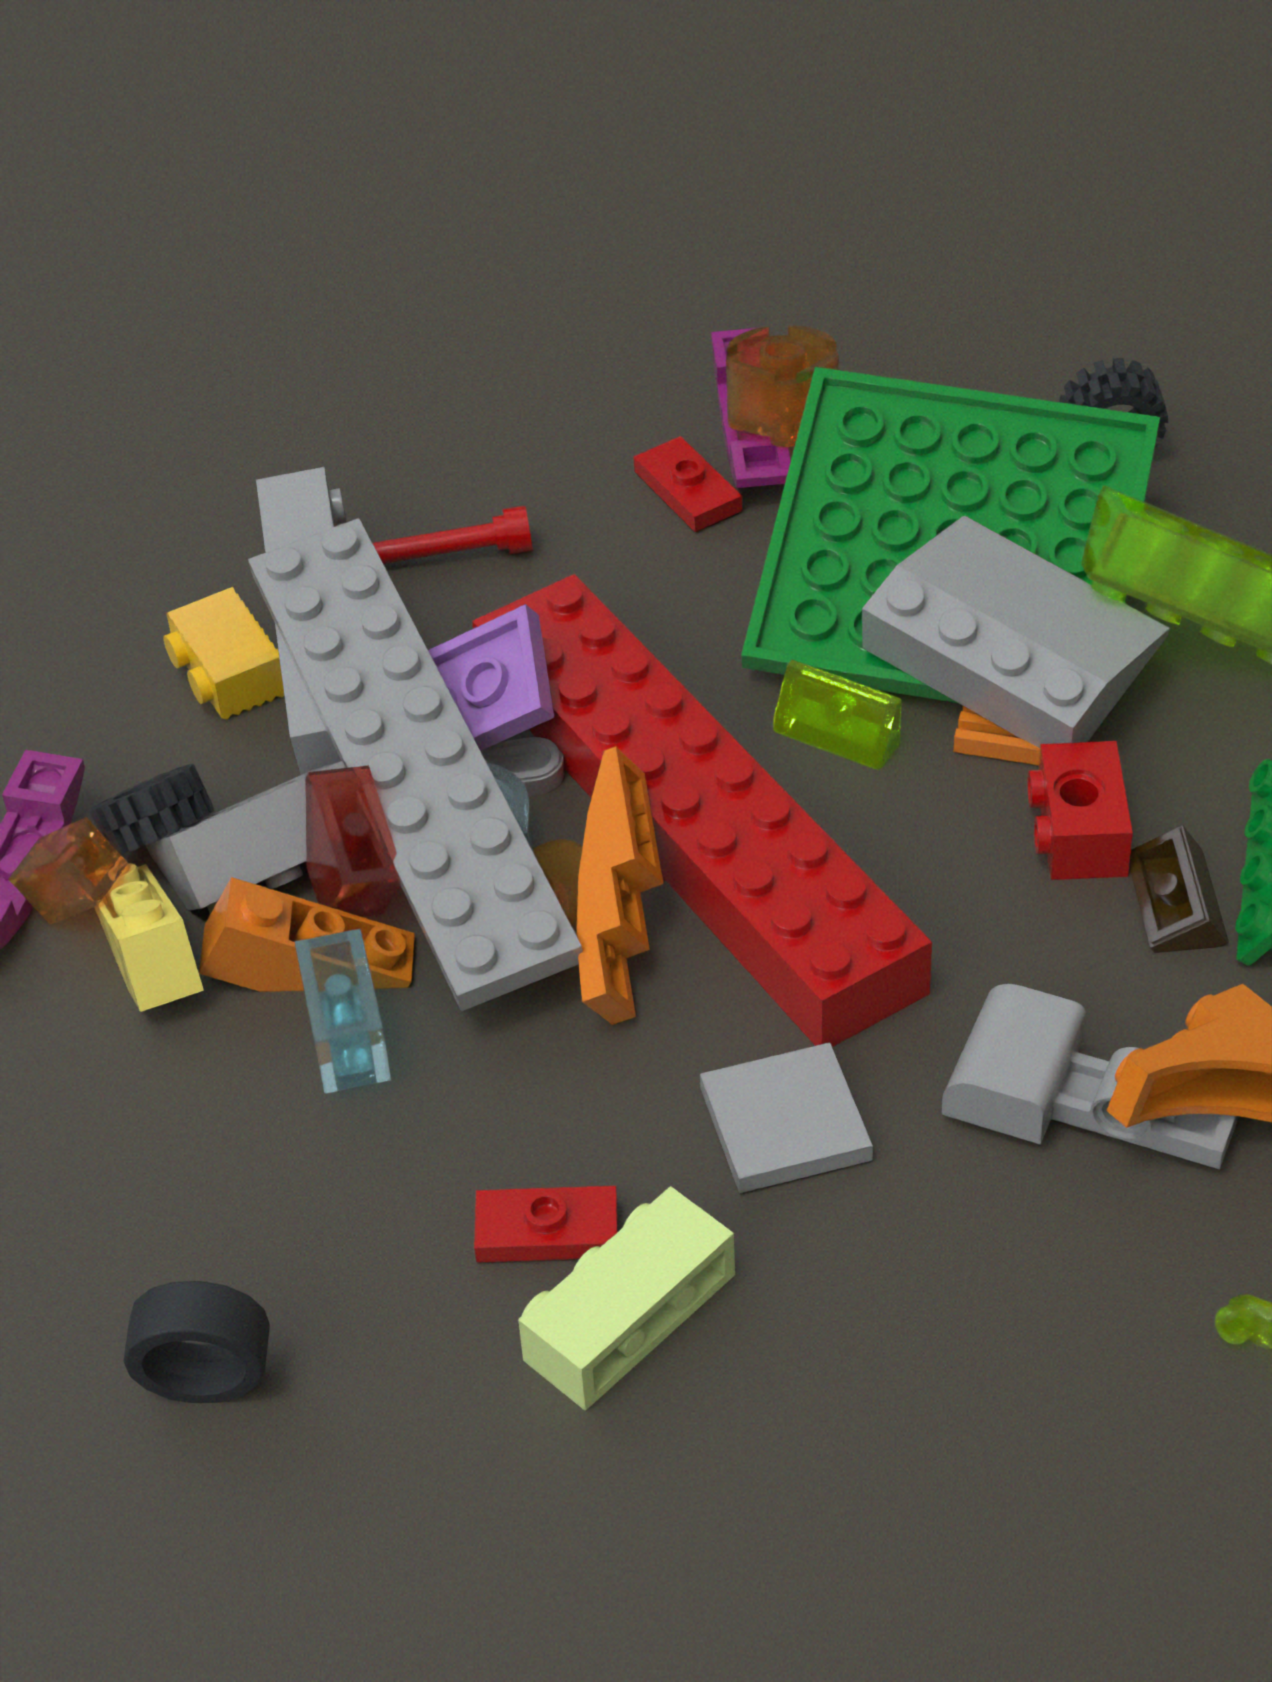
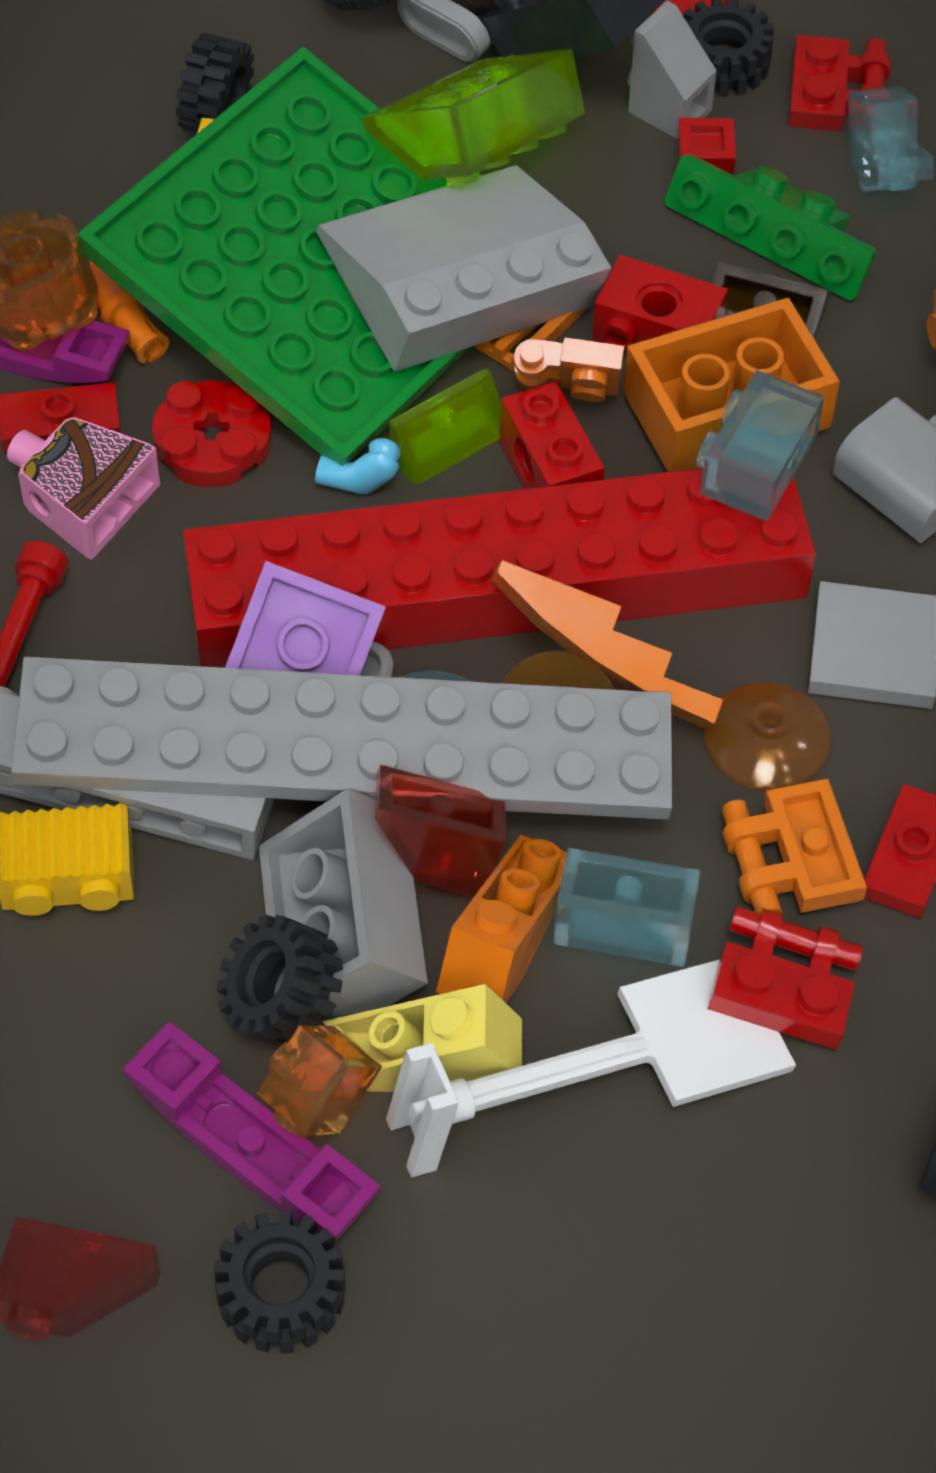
camera: 70 degrees left, 10 degrees up
(249, 1127) = (685, 1042): none -> white piece
(321, 1166) = (782, 993): none -> red plate
(498, 1140) = (812, 843): none -> orange plate
(613, 518) = (84, 480): none -> torso
(633, 1092) = (762, 755): none -> clear orange dish
(706, 568) = (206, 405): none -> red plate
(749, 683) = (365, 473): none -> medium azure arm
(853, 781) = (546, 439): none -> red brick
(898, 893) = (759, 444): none -> clear light blue brick
(944, 757) = (578, 365): none -> orange plate
(1014, 883) = (687, 376): none -> orange brick

